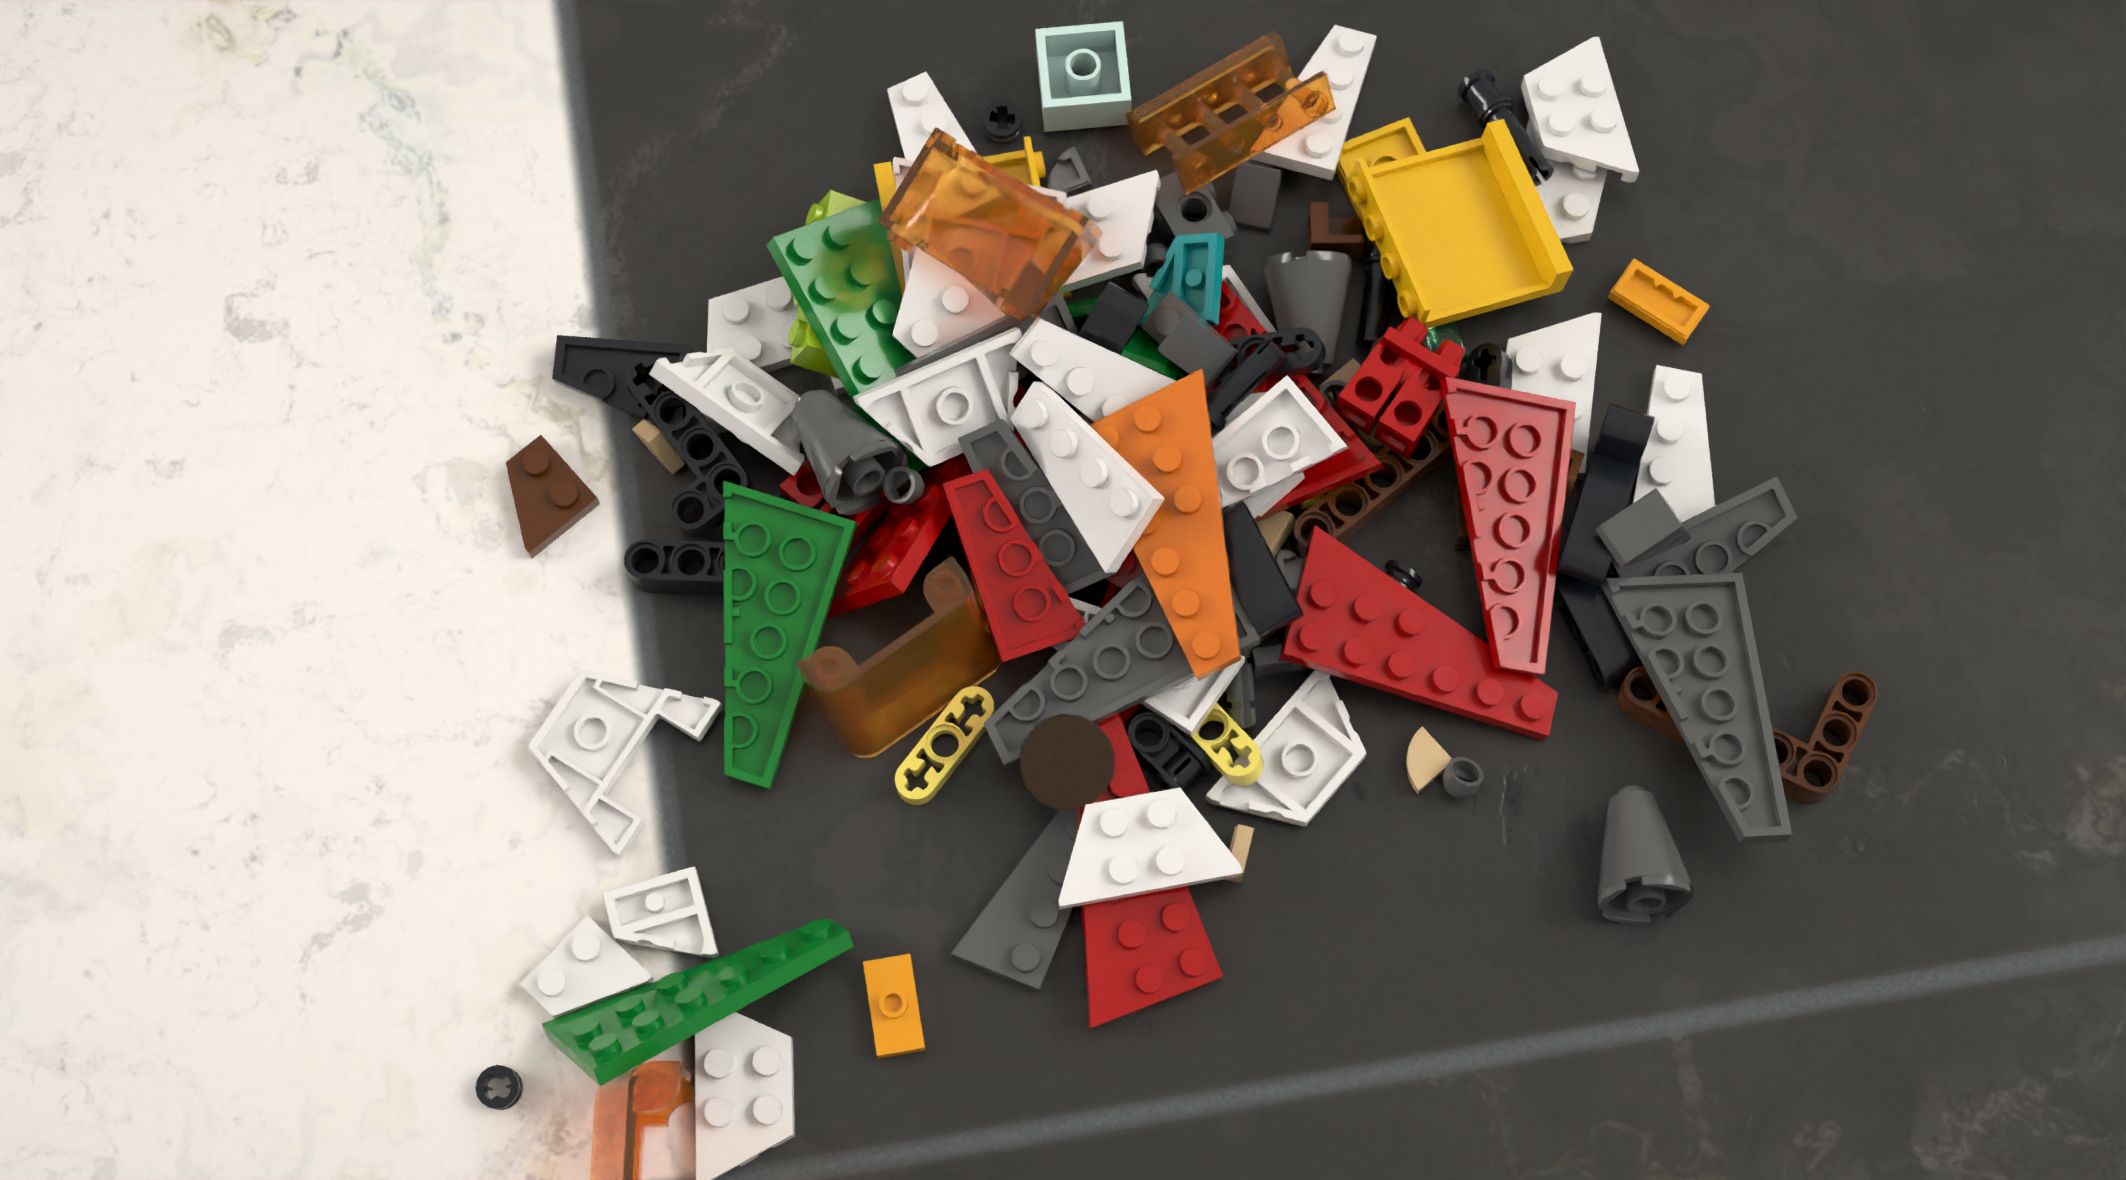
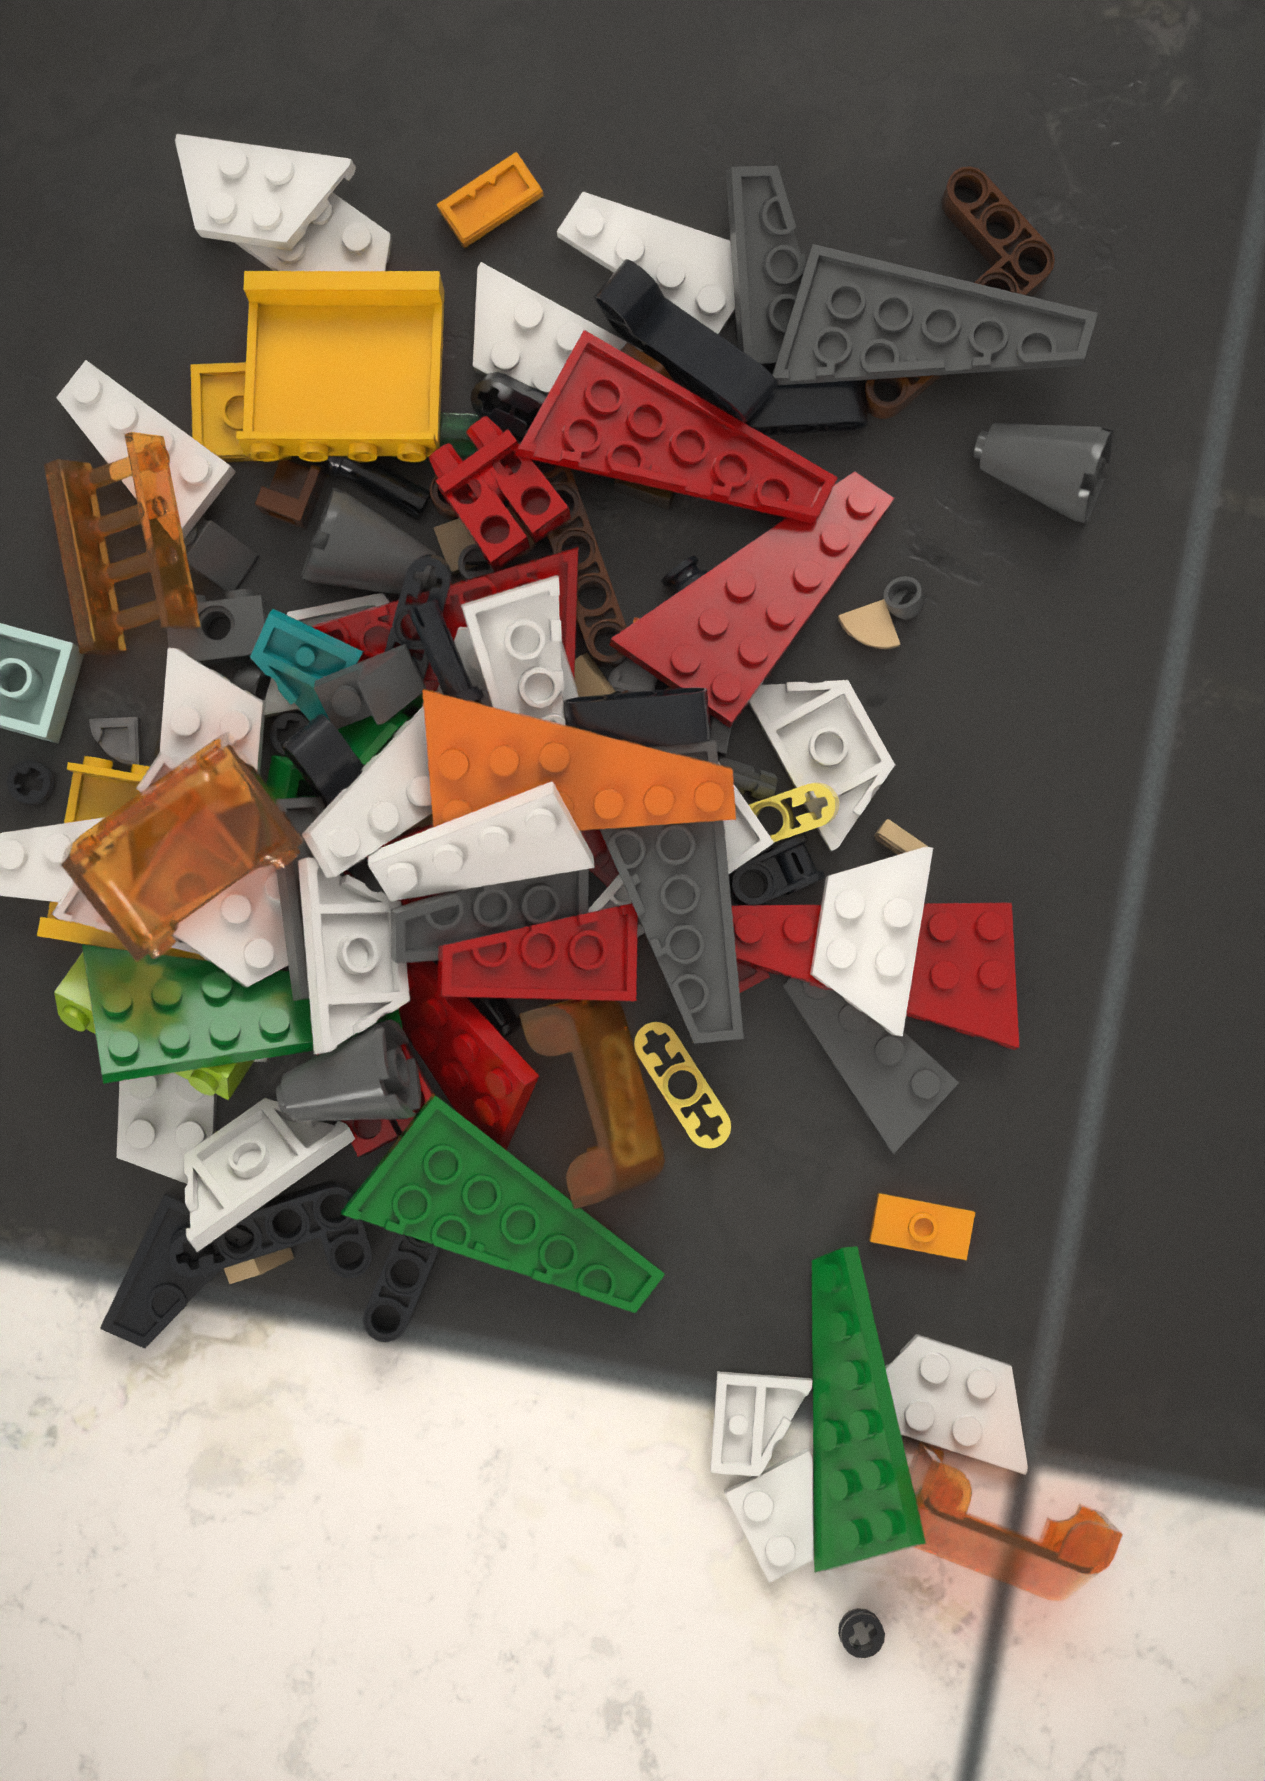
camera: 70 degrees left, 15 degrees up
(546, 495) = (266, 1394): reddish brown wing -> none
(597, 734) = (543, 1424): white wing -> none
(901, 479) = (407, 1034): dark grey hinge -> none
(1067, 761) = (764, 976): dark brown tile -> none
(1492, 106) = (225, 274): black pin -> none
(1643, 530) = (744, 321): dark grey slope -> none

